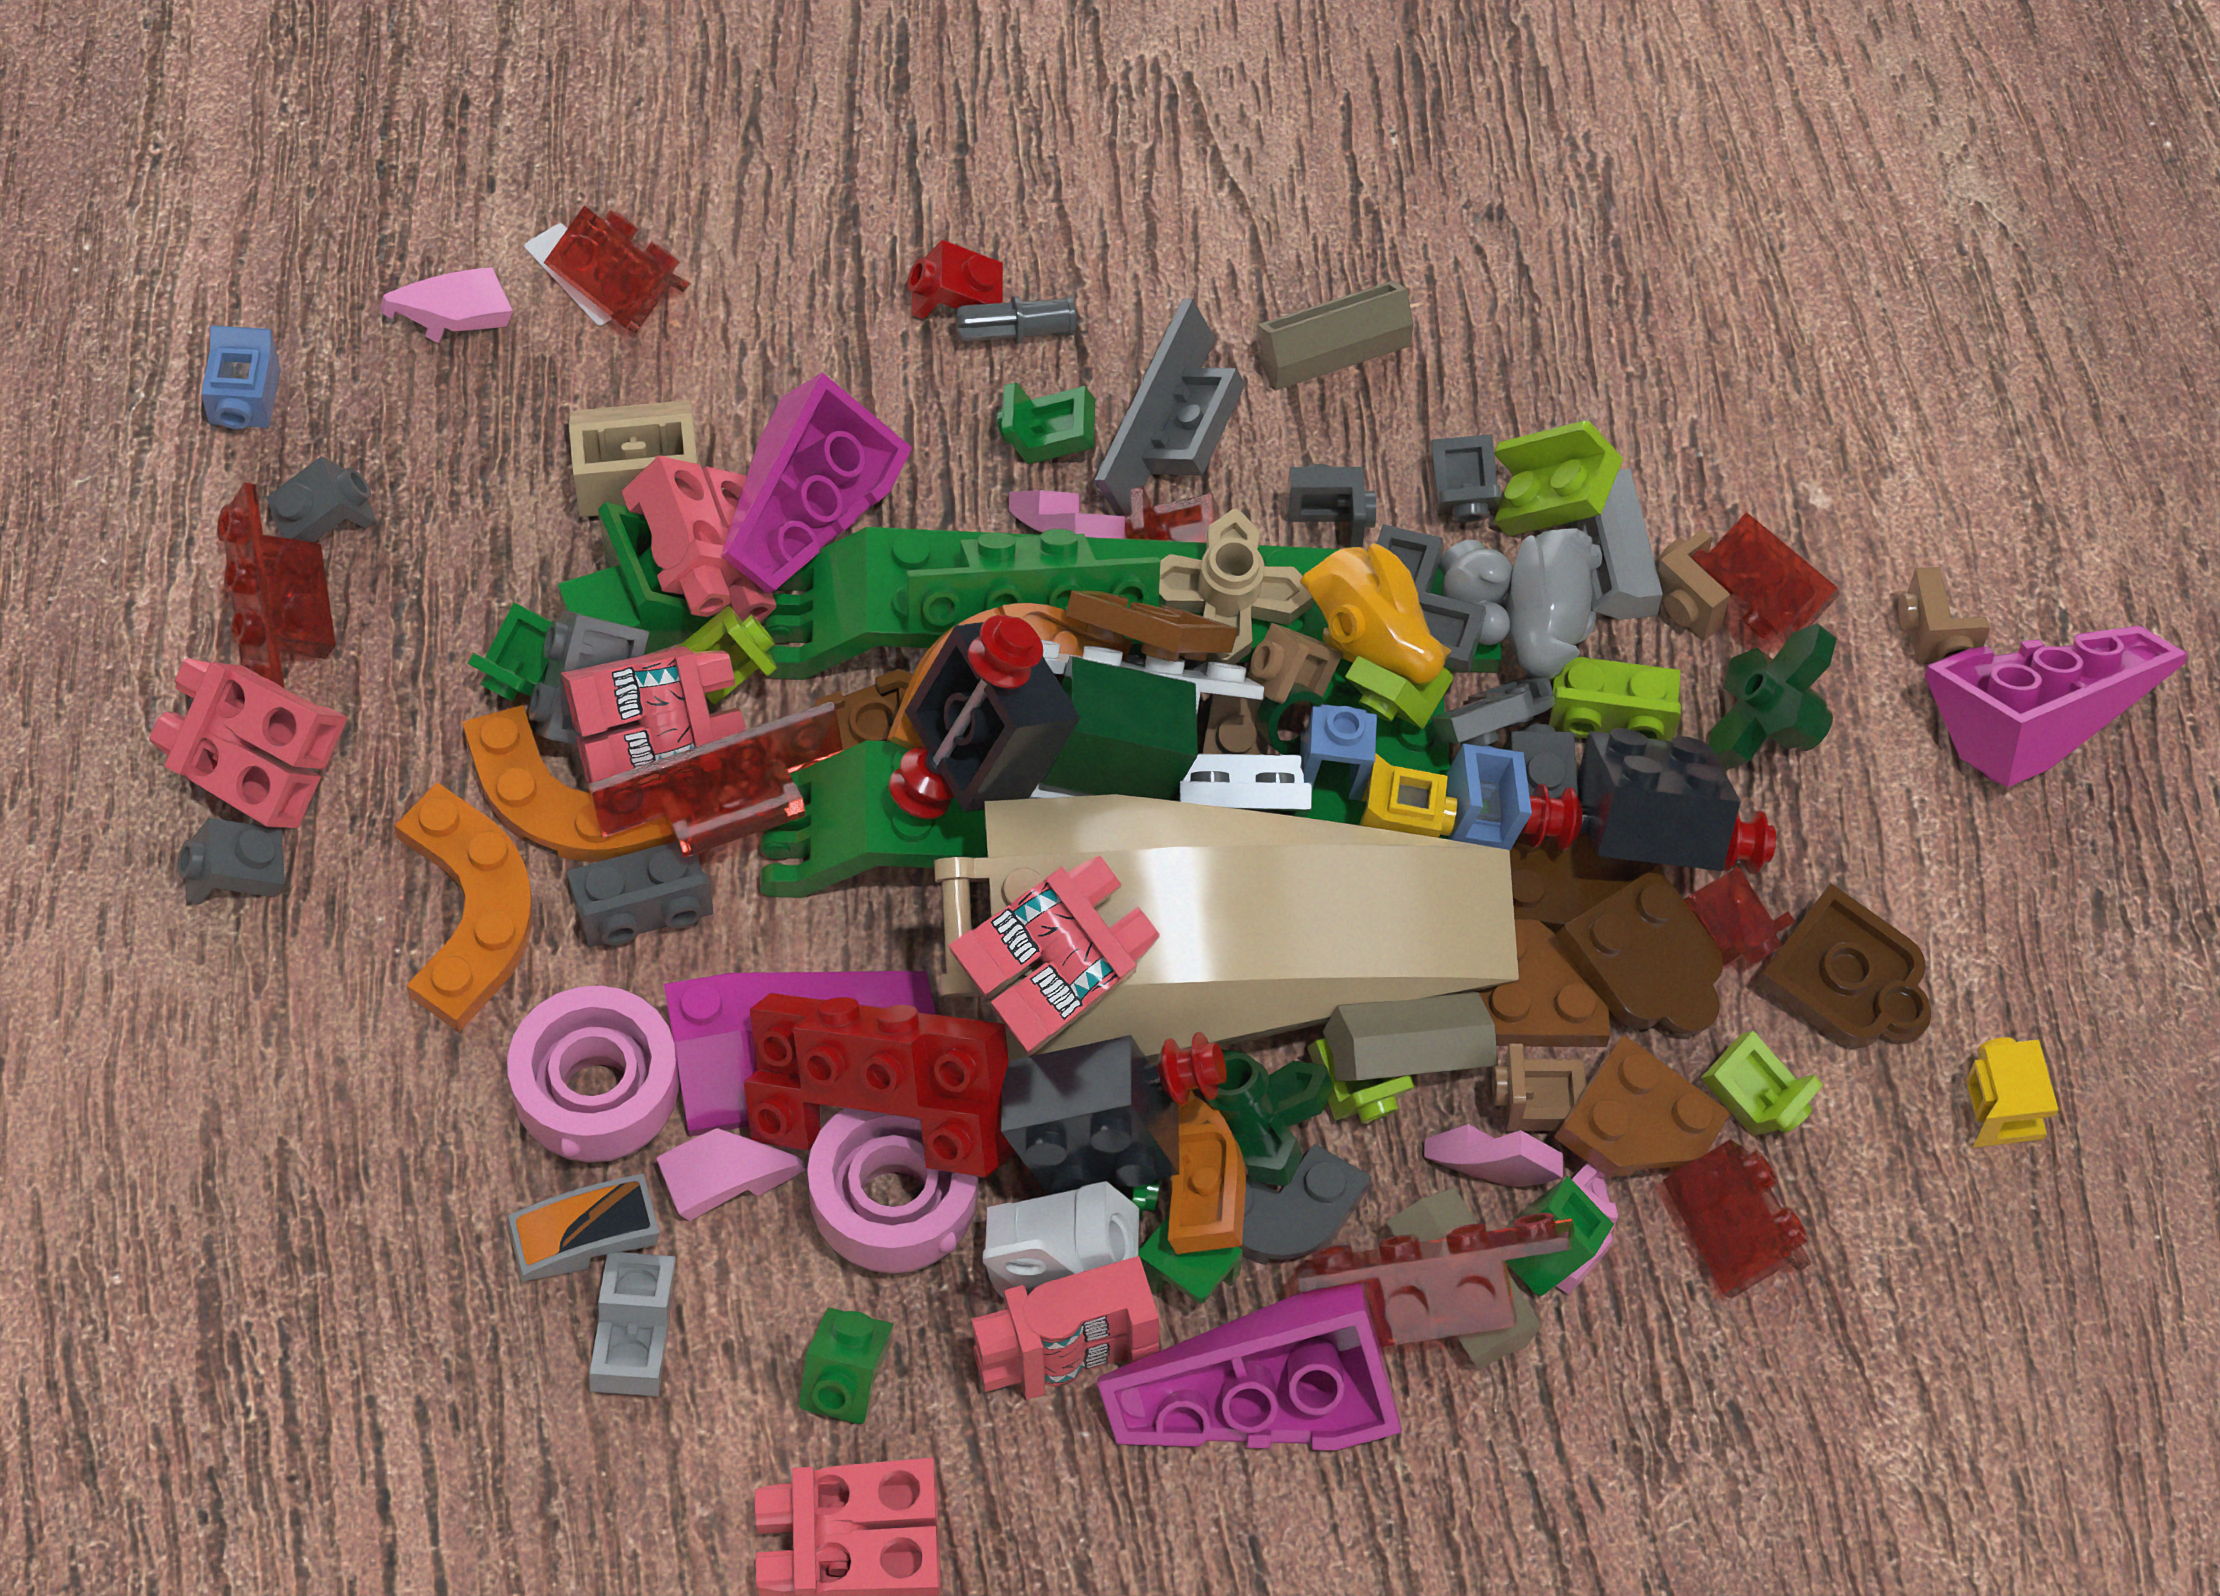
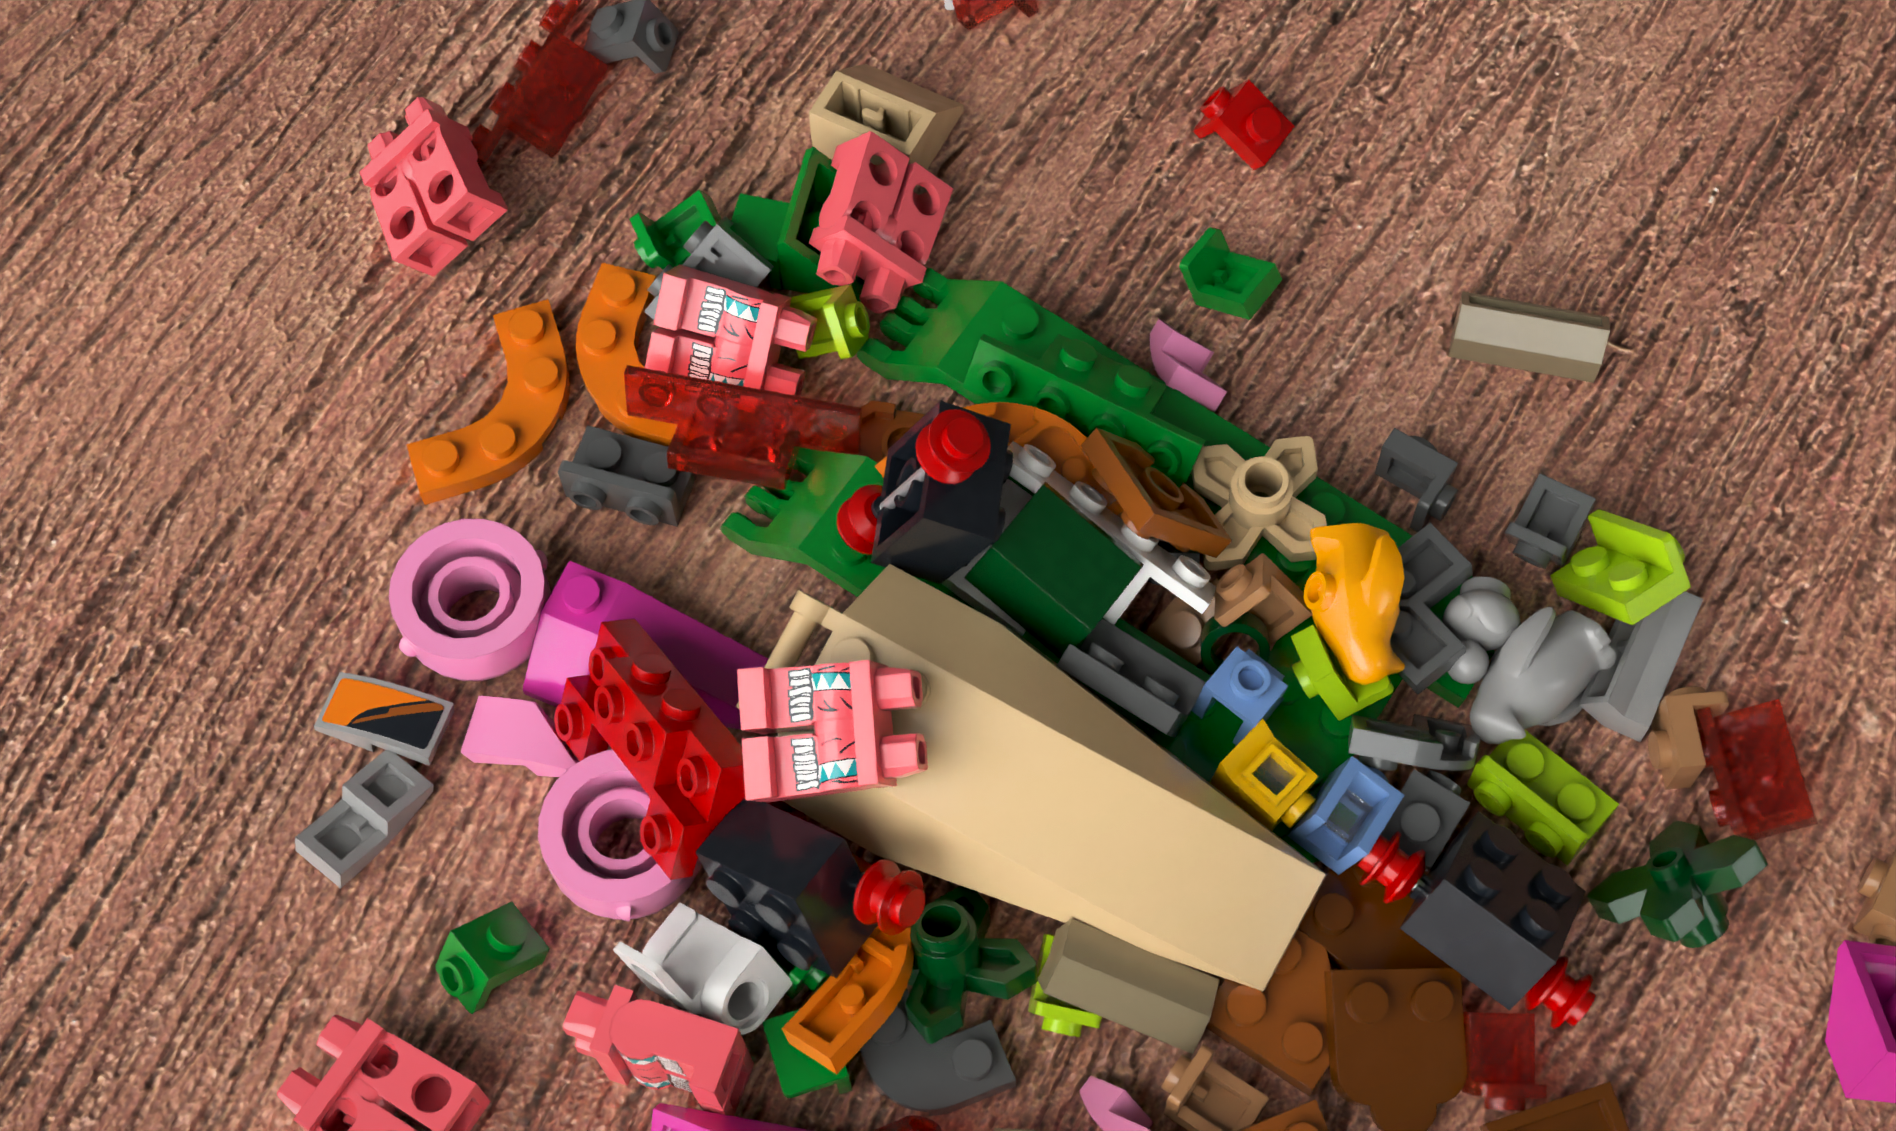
camera: 40 degrees right, 5 degrees up
(233, 859) = (362, 273): dark grey bracket -> none
(809, 480) = (996, 221): dark pink wedge -> none
(1016, 319) = (1268, 179): dark grey axle -> none
(1174, 413) = (1337, 327): dark grey bracket -> none
(1174, 521) = (1262, 416): clear red bracket -> none

